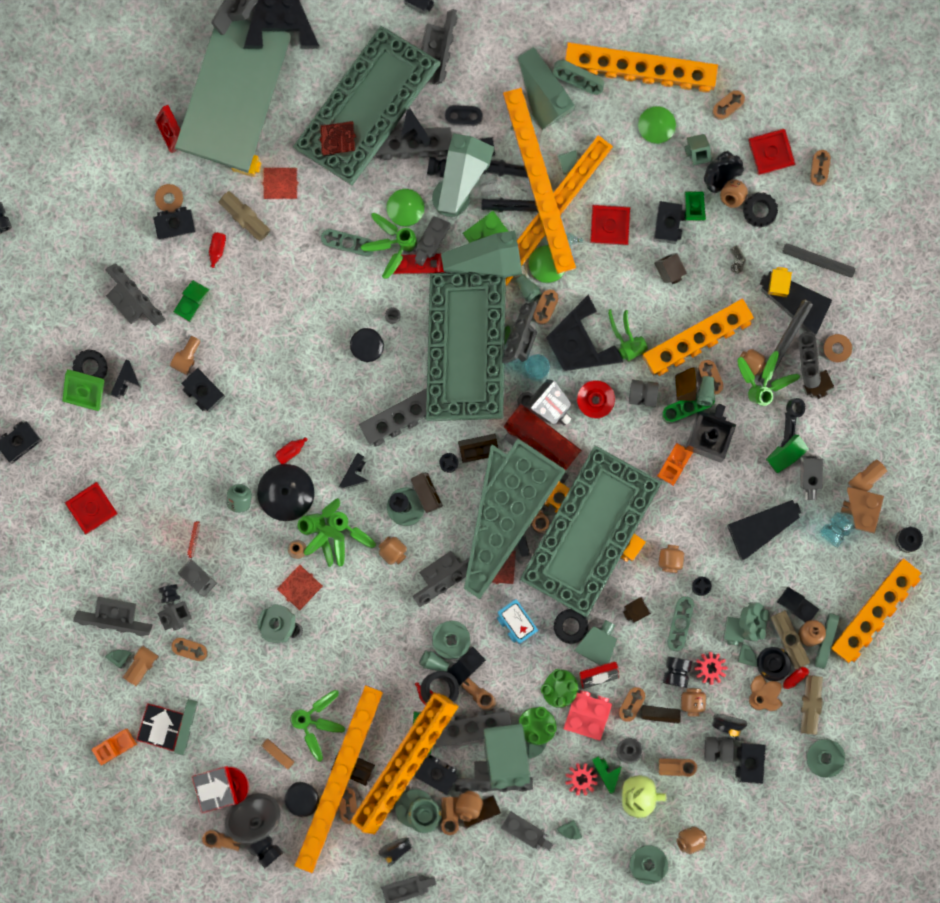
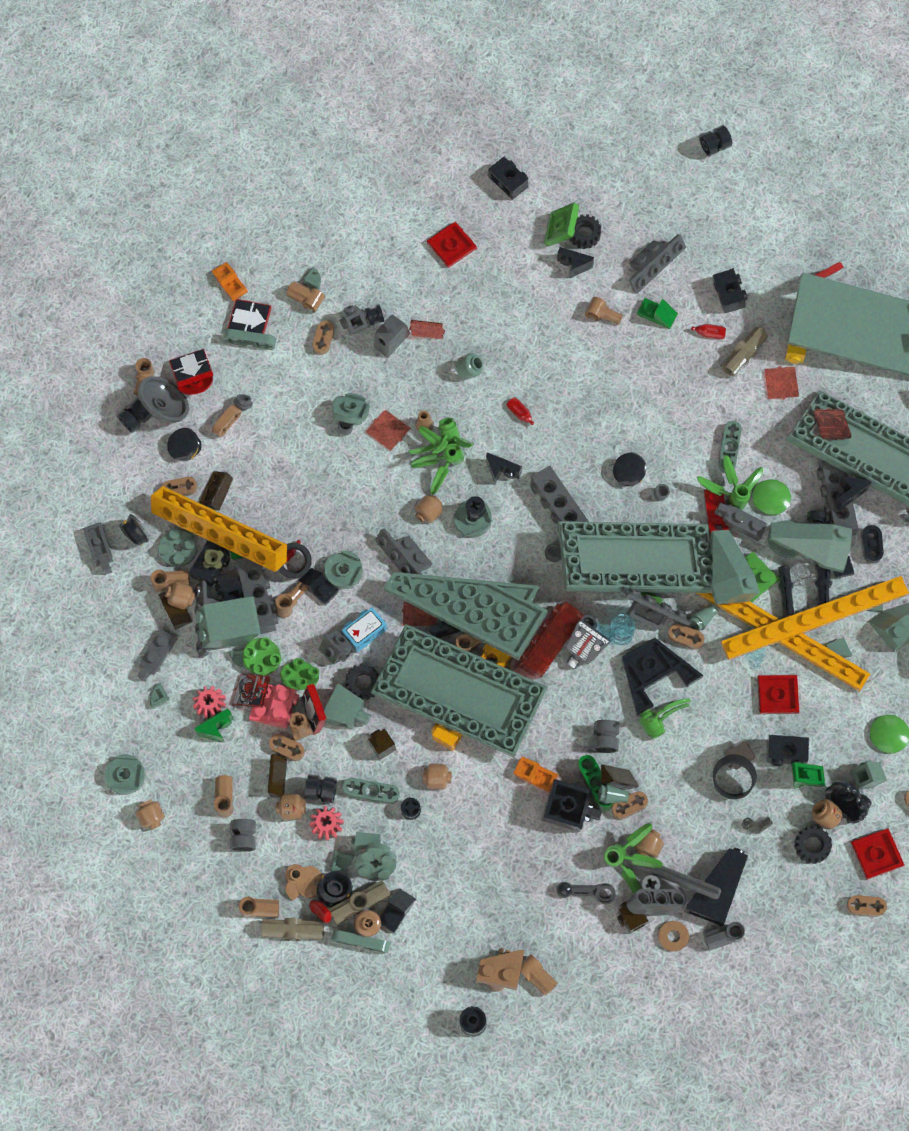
camera: 90 degrees right, 15 degrees down
(113, 615) = (351, 270): dark grey bracket -> none
(165, 189) = (755, 278): medium nougat piece -> none
(194, 382) = (565, 337): black brick -> none
(257, 736) = (243, 402): none -> dark grey plate
(288, 506) = (481, 420): black dish -> none
(321, 724) = (259, 441): bright green plant -> none
(338, 779) = (204, 475): light orange plate -> none
(424, 815) = (169, 554): sand green piece -> none
(426, 492) = (488, 536): dark brown slope -> none
(432, 774) = (209, 554): none -> olive plate
(433, 662) = (320, 555): sand green cone -> none
(448, 429) = (553, 553): none -> dark grey plate
(450, 460) = (517, 551): black wheel -> none
(463, 756) = (229, 586): none -> black brick
(477, 447) = (535, 575): dark brown slope -> none
(535, 650) = (336, 647): none -> dark grey brick
(542, 265) = (726, 629): bright green dish -> none
(572, 737) = (251, 690): none -> piece
(596, 389) = (597, 681): red dish -> none
(615, 689) = (300, 726): none -> medium nougat piece
(629, 750) = (238, 745): dark grey wheel -> none
(640, 796) = (192, 758): yellowish green piece -> none
(680, 275) = (739, 760): none -> black tyre
(729, 725) = (267, 843): black piece -> none
(738, 309) = (645, 744): light orange brick -> none
(755, 774) = (239, 876): black brick -> none
(758, 529) = (474, 864): black slope -> none
(780, 282) = (736, 863): yellow brick -> none
(785, 456) = (555, 888): green slope -> none
(789, 733) = (262, 908): none -> medium nougat piece
(793, 359) = (653, 880): none -> light grey bush
(810, 467) = (542, 912): dark grey torso -> none
(819, 260) = (766, 910): dark grey axle -> none
(836, 760) = (249, 949): sand green plate -> none
(837, 529) = (478, 944): clear light blue wheel -> none
(841, 303) = (722, 936): none -> dark grey piece
(902, 569) = (355, 957): light orange brick -> none

